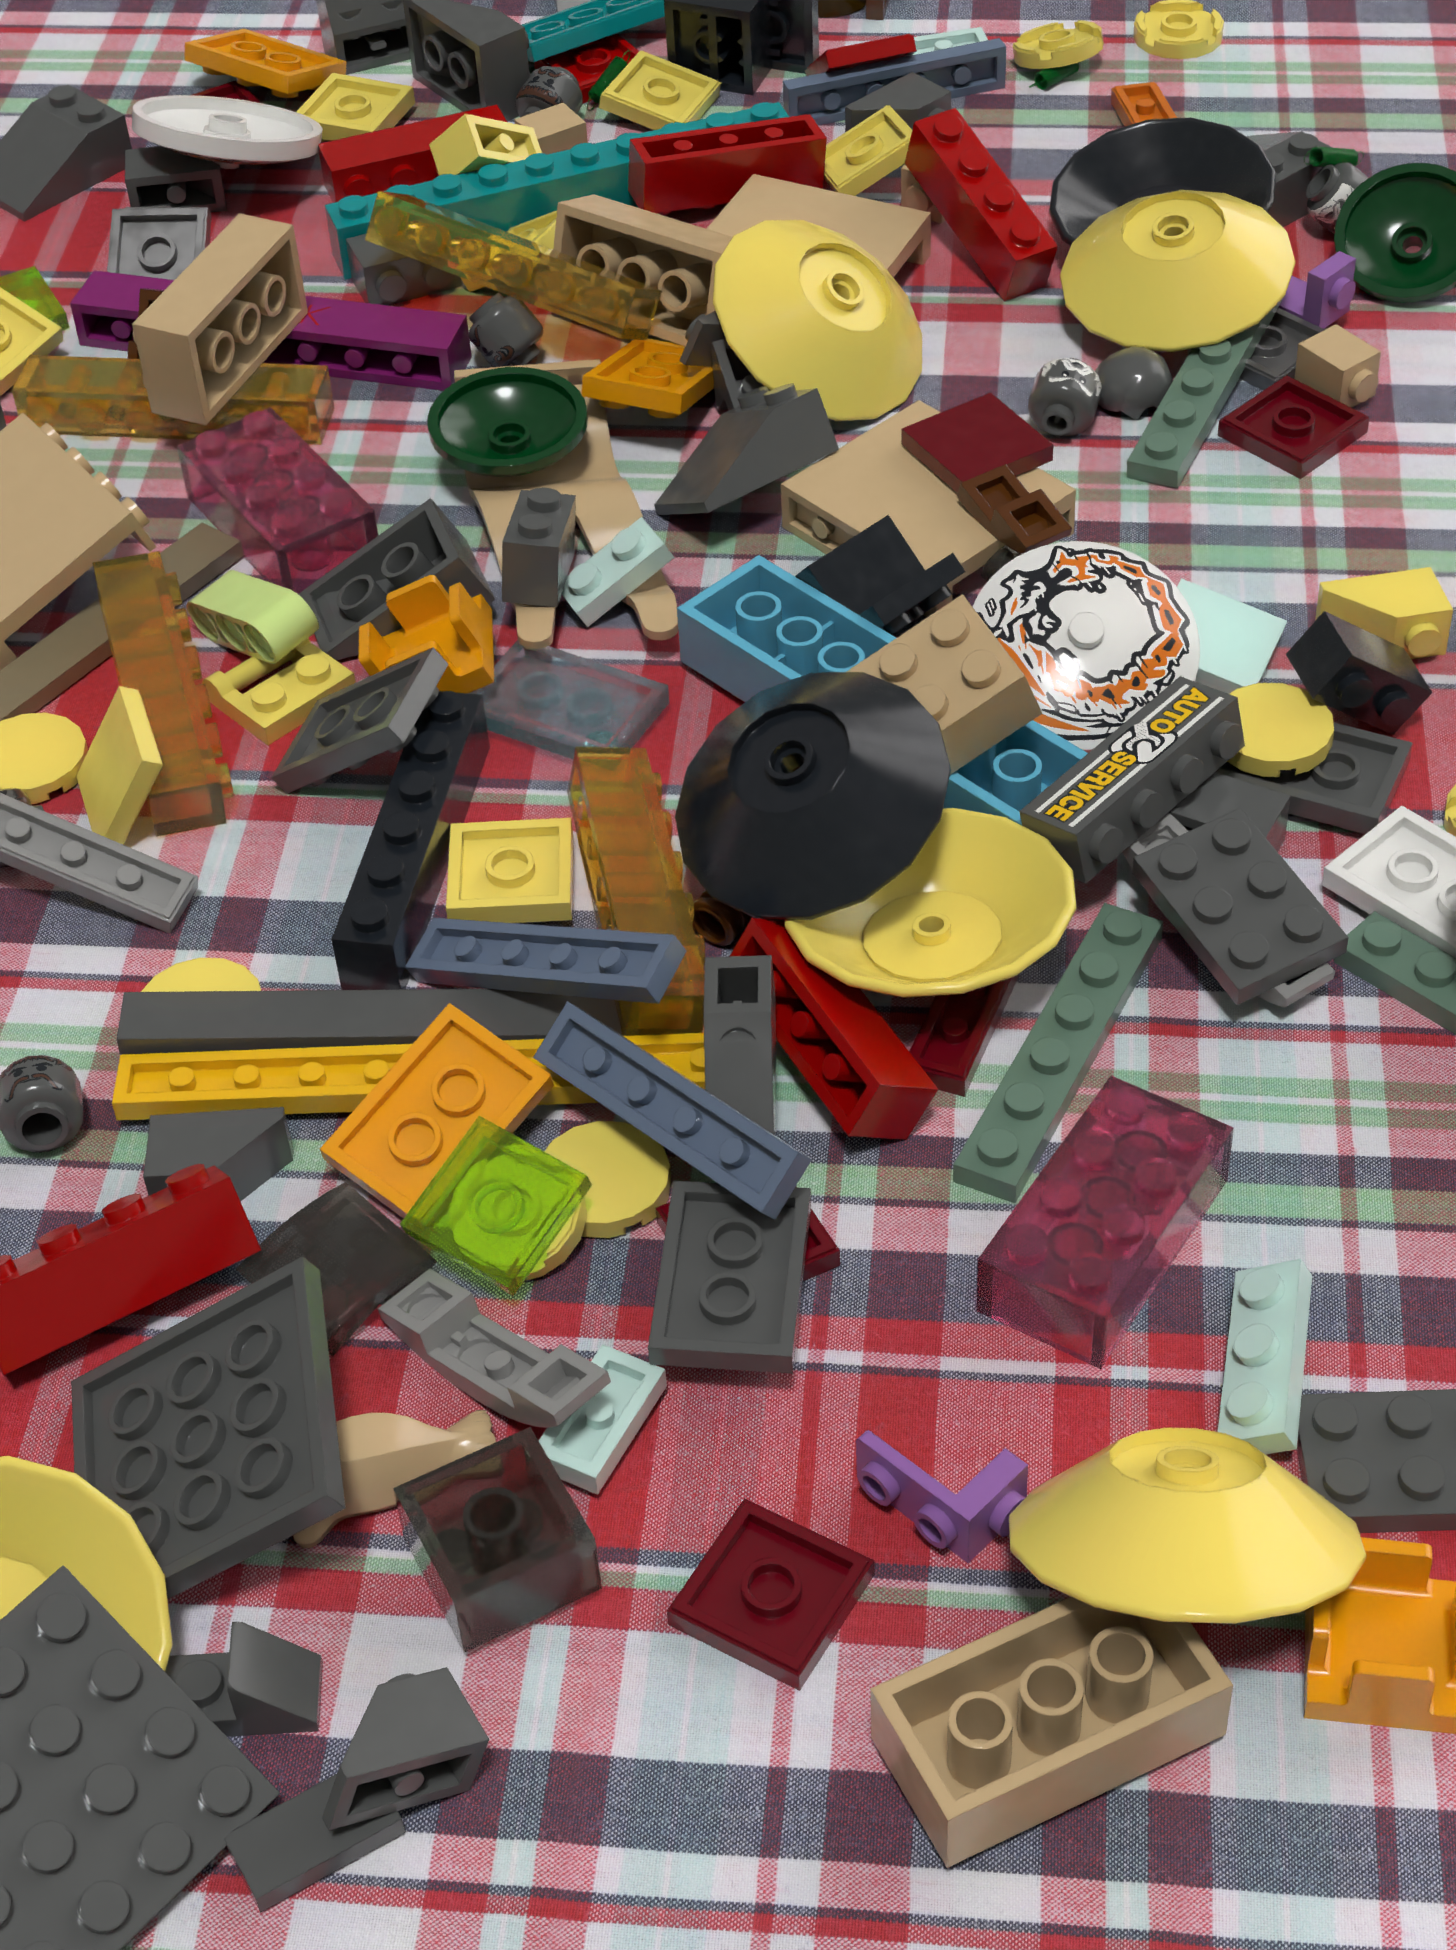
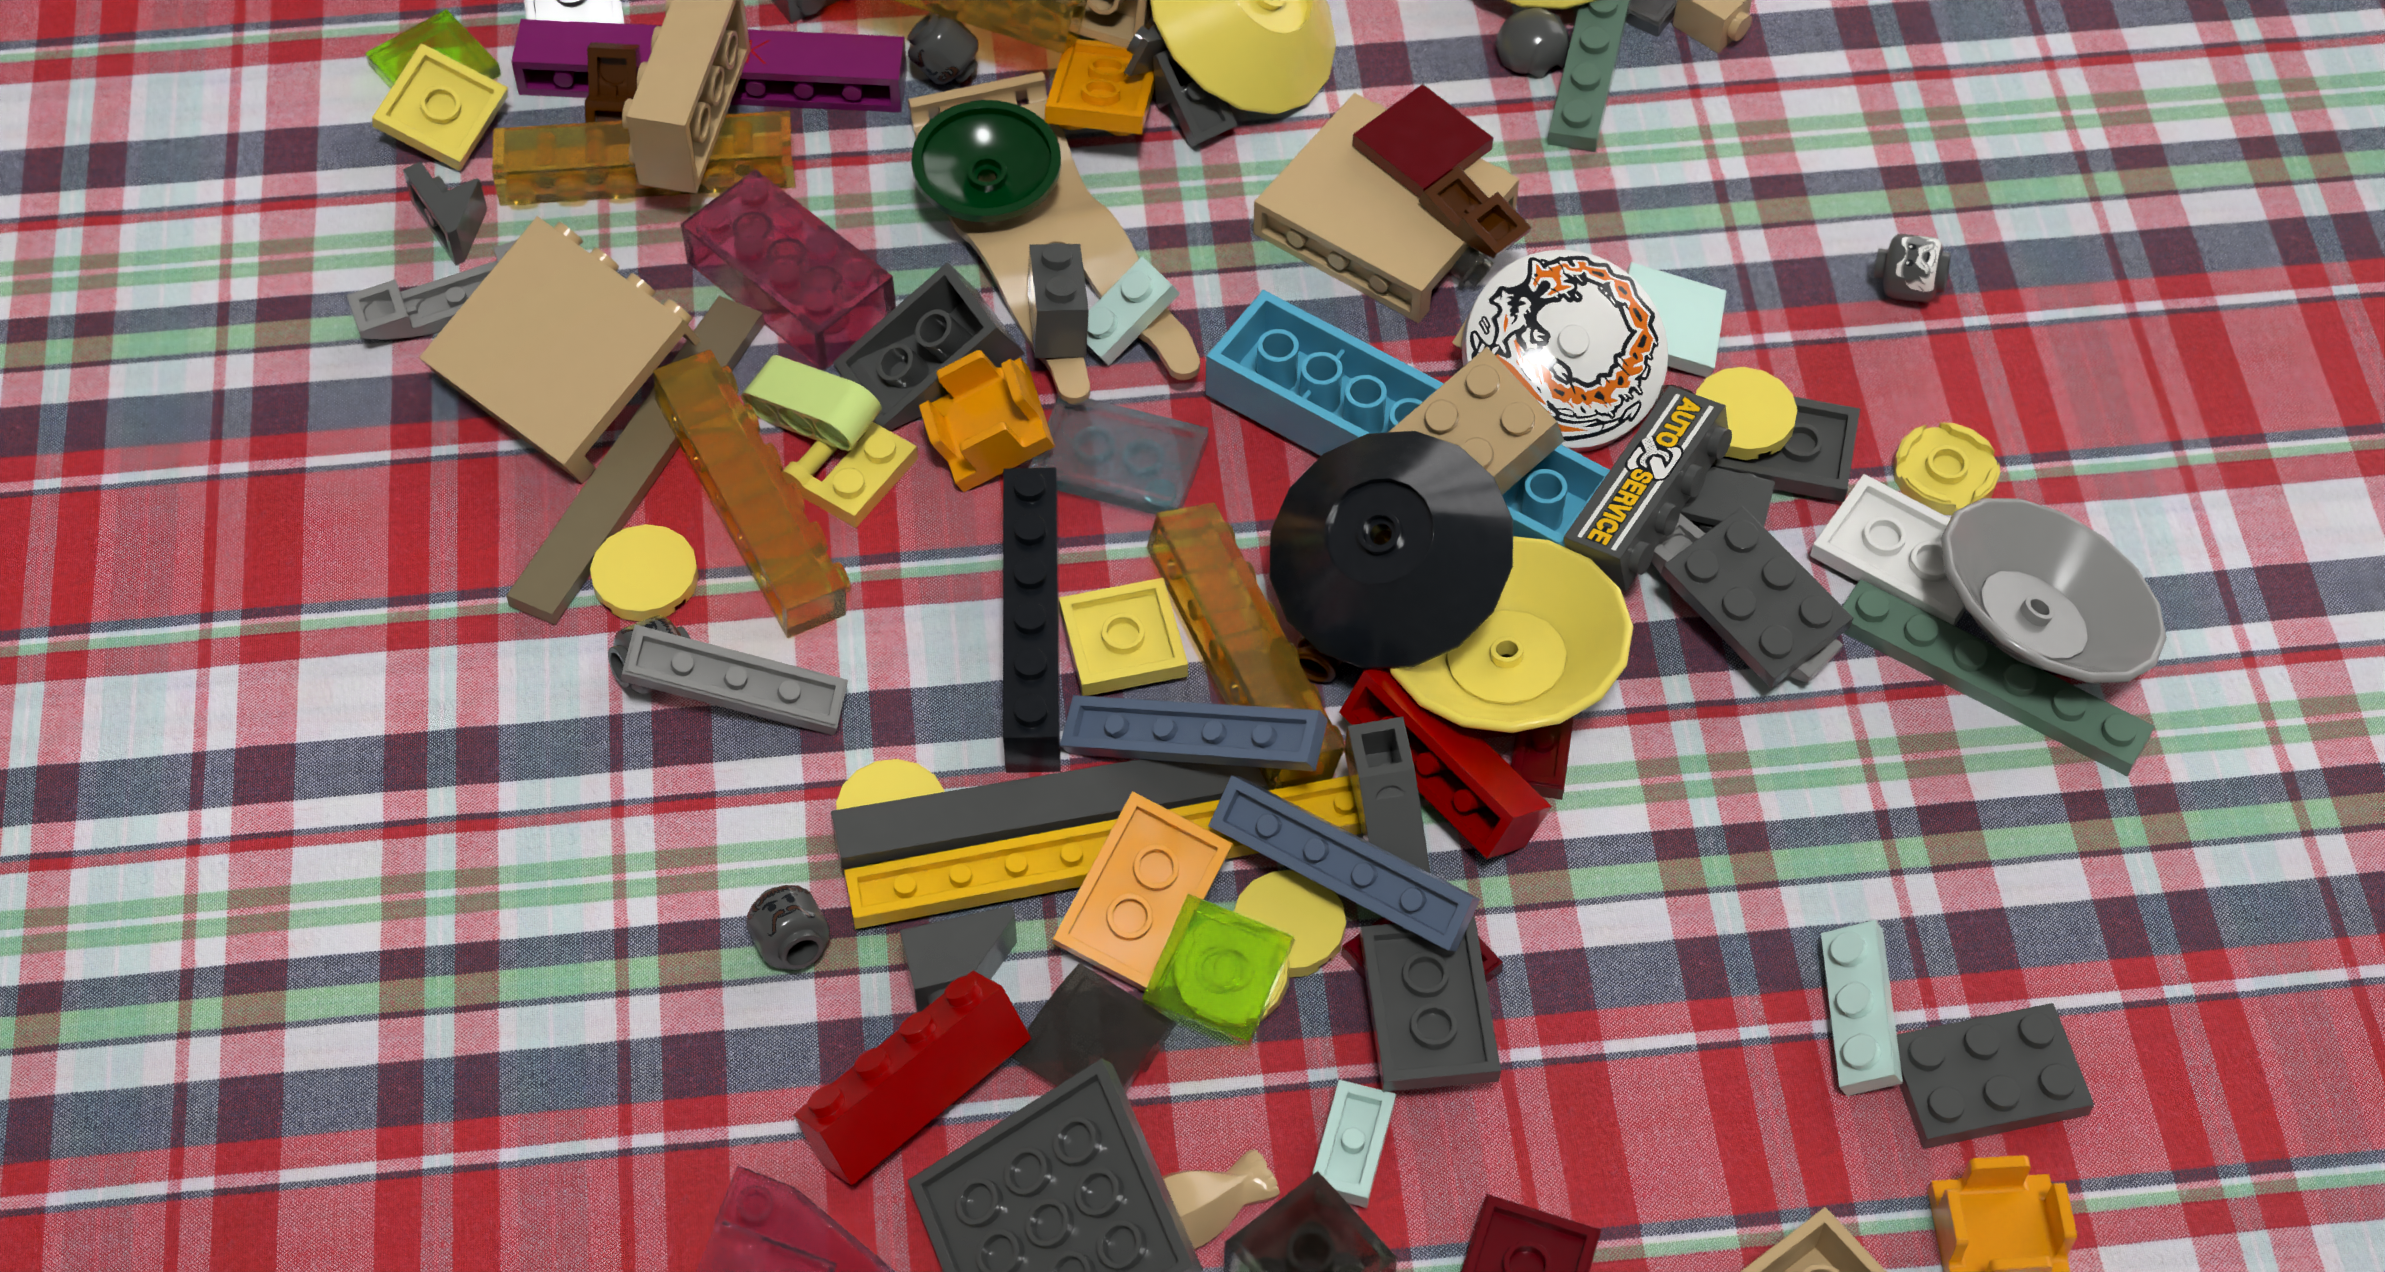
camera: 15 degrees left, 10 degrees up
(119, 767) = (747, 584): light yellow tile -> none
(361, 722) = (952, 507): dark grey plate -> none
(485, 1358) = (1250, 1107): light grey slope -> none
(750, 448) = (1214, 169): dark grey slope -> none
(882, 577) = (1369, 297): black bracket -> none
(945, 1519) = (1639, 1181): medium lavender bracket -> none
(1057, 1054) = (1632, 748): sand green plate -> none
(1064, 397) = (1479, 67): dark grey head -> none
(1104, 1221) = (1711, 905): clear pink brick -> none
(1186, 1532) = (1846, 1180): light yellow dish -> none
(1293, 426) = (1683, 73): dark red tile -> none
(1358, 673) = (1805, 348): black brick -> none
(1396, 606) = (1811, 275): light yellow slope -> none

